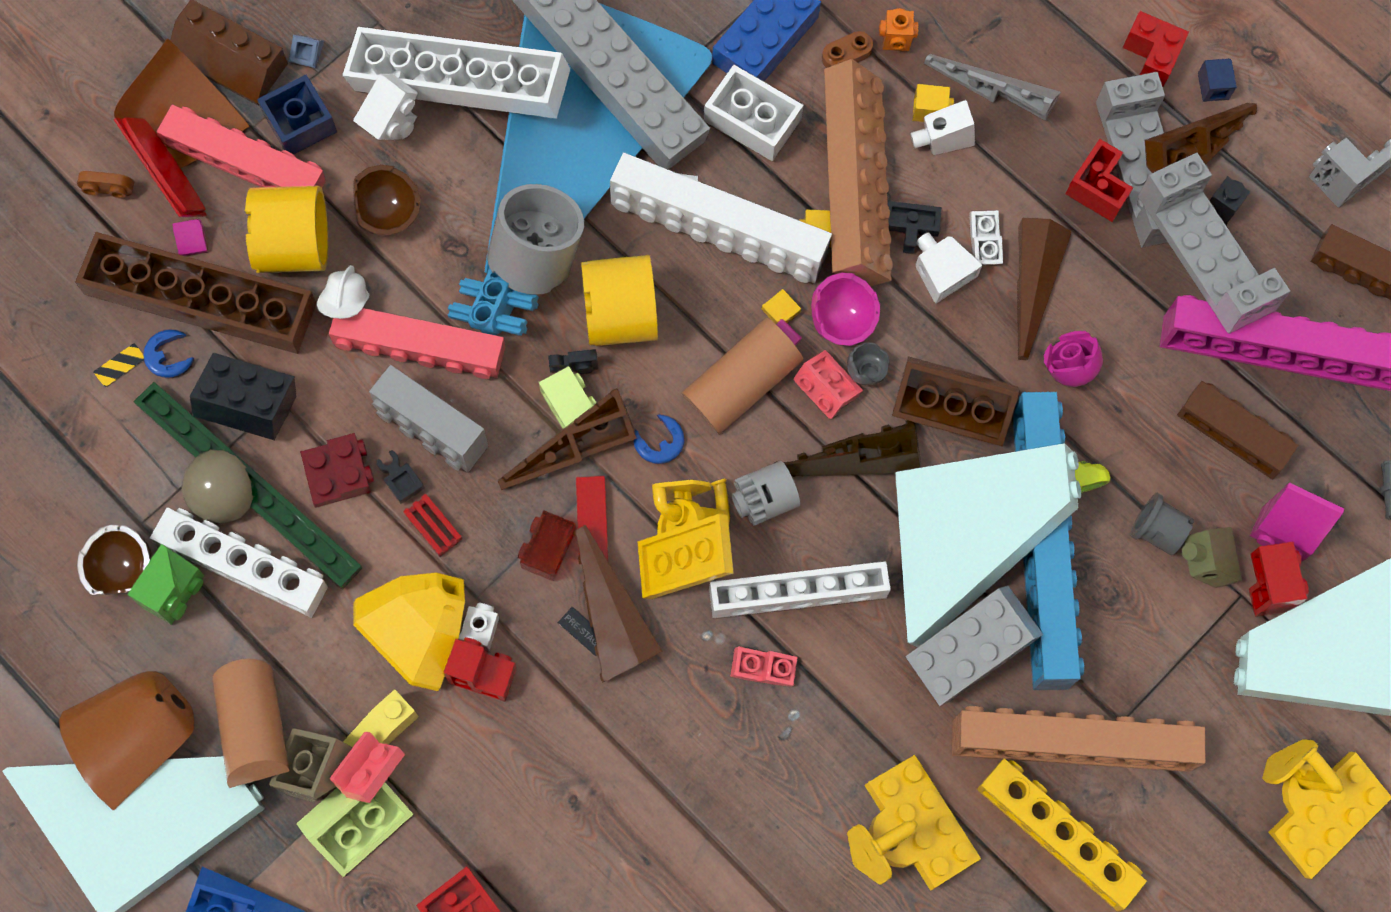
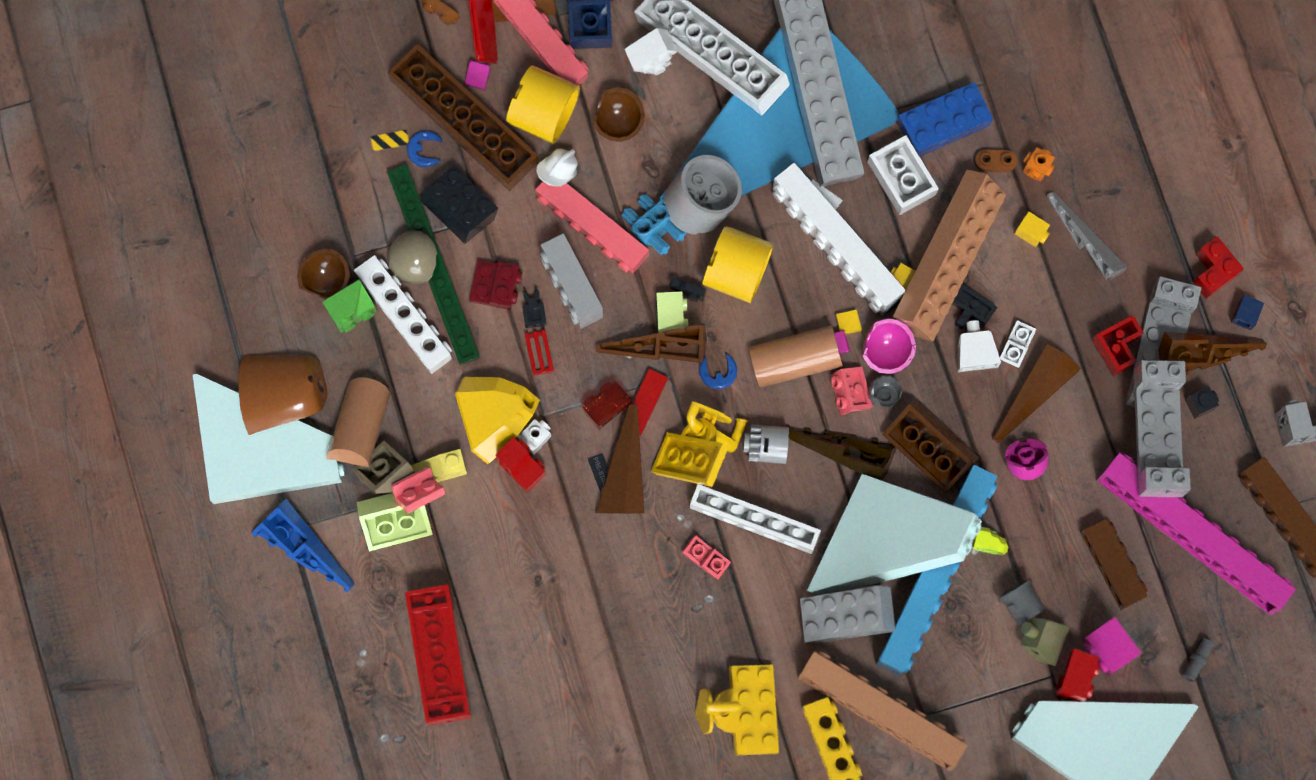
camera: 30 degrees right, 5 degrees up
(946, 129) = (1038, 254): white torso -> none

